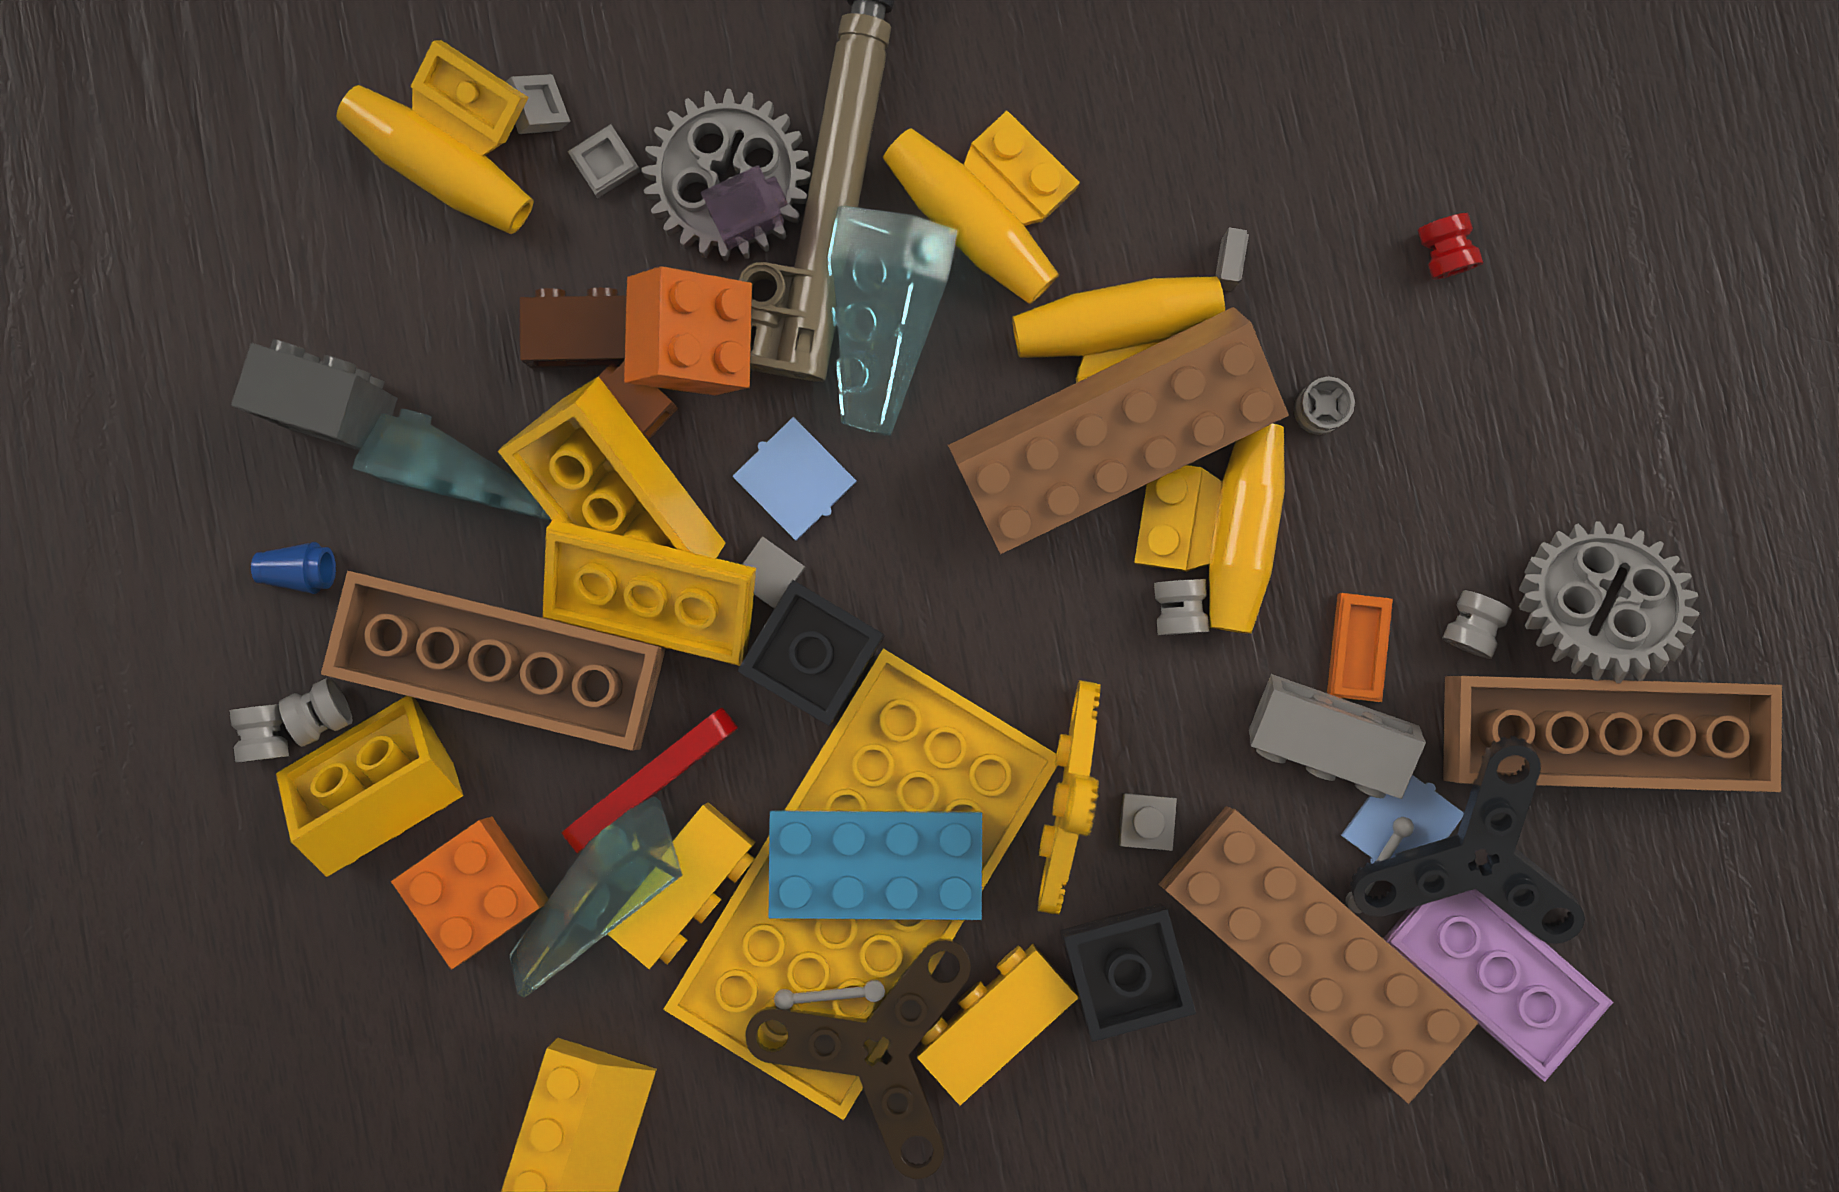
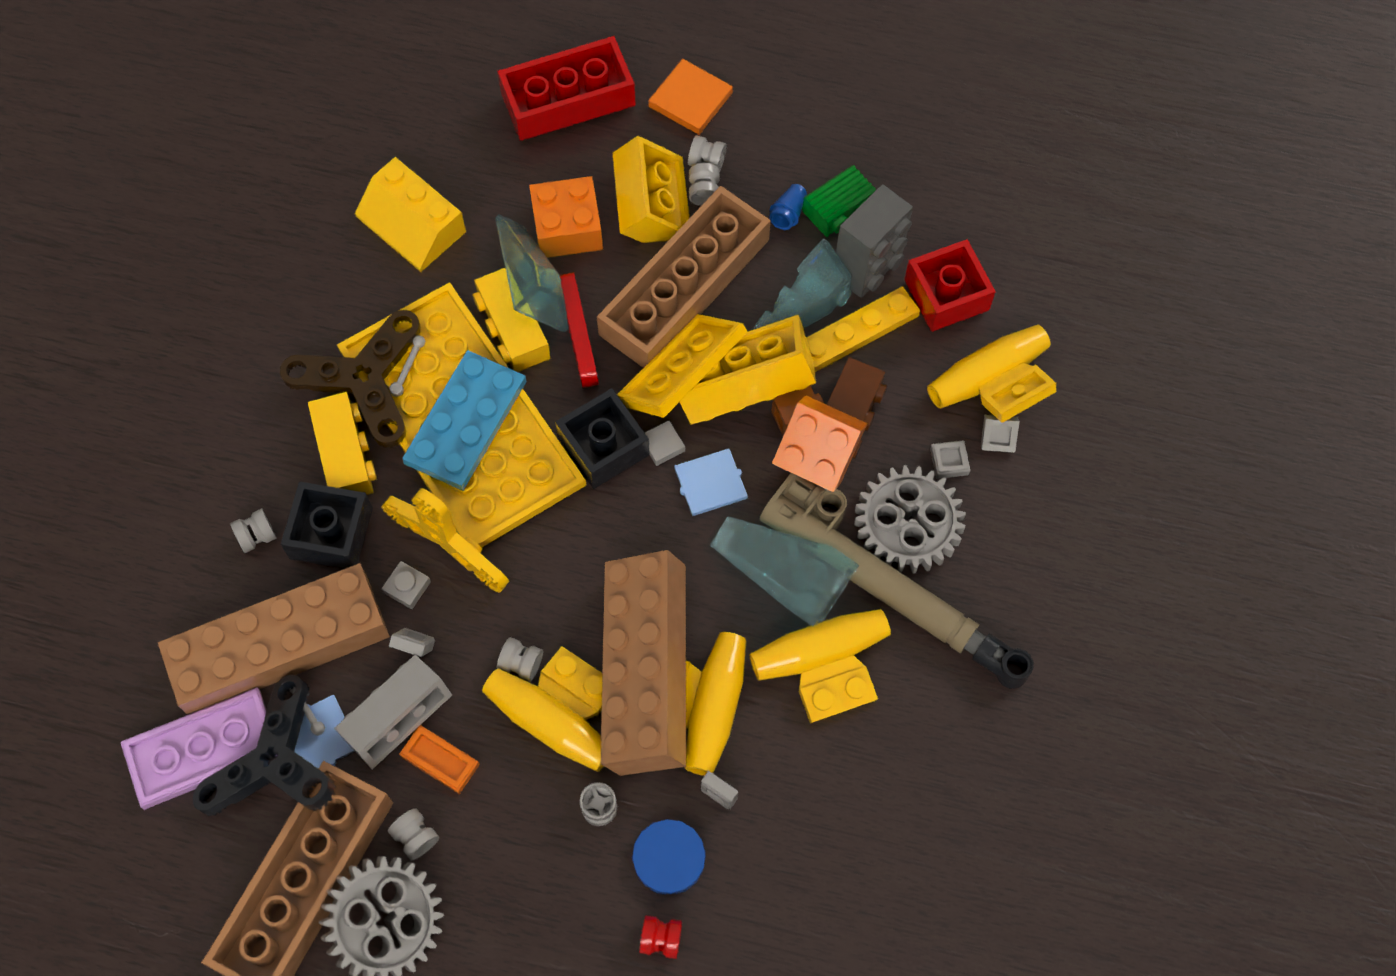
camera: 115 degrees right, 20 degrees down
(159, 812) = (690, 96): none -> orange tile
(240, 1006) = (567, 88): none -> red brick
(251, 495) = (837, 200): none -> green brick
(327, 267) = (949, 285): none -> red brick
(448, 372) = (861, 327): none -> yellow plate
(745, 206) = (881, 507): clear purple brick -> none
(1177, 1075) = (260, 526): none -> light grey wheel
(1229, 765) = (412, 642): none -> light grey tile
(1342, 287) = (669, 857): none -> blue tile

